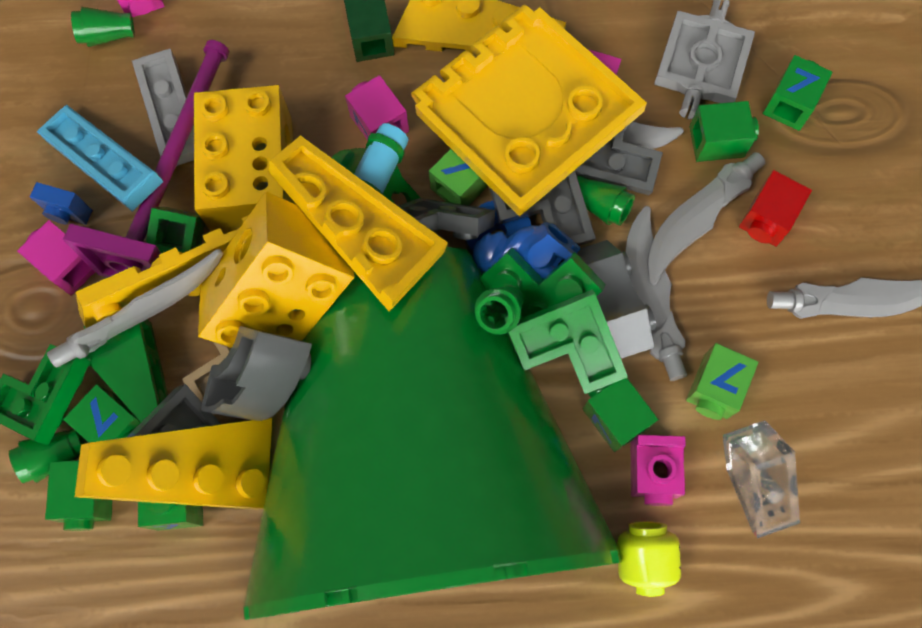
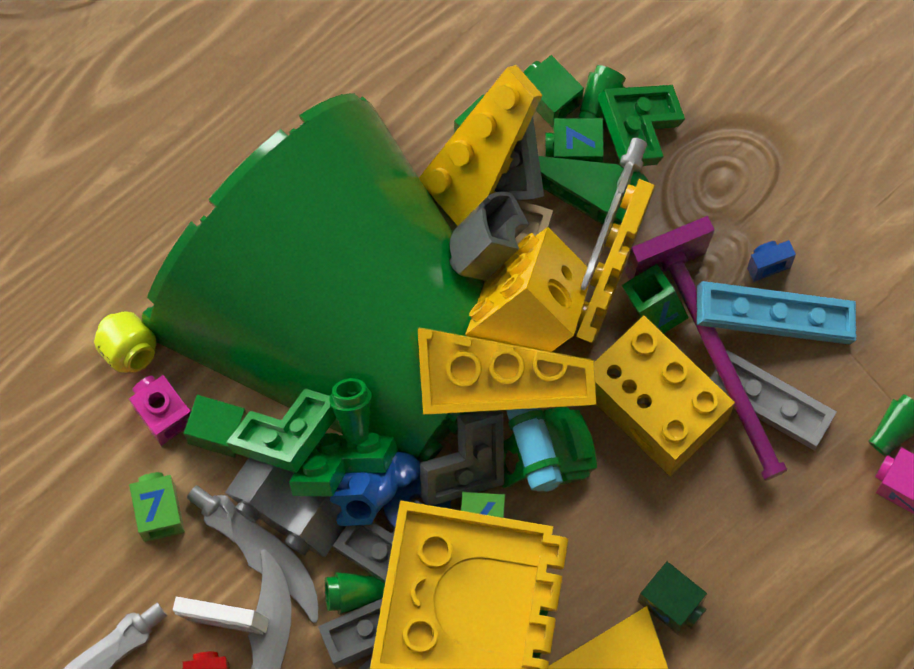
camera: 140 degrees right, 0 degrees up
(55, 258) = (734, 221): dark pink brick -> none
(374, 104) = (597, 524): dark pink brick -> none
(729, 249) = (220, 615): none -> white tile
(763, 477) = (82, 458): clear slope -> none

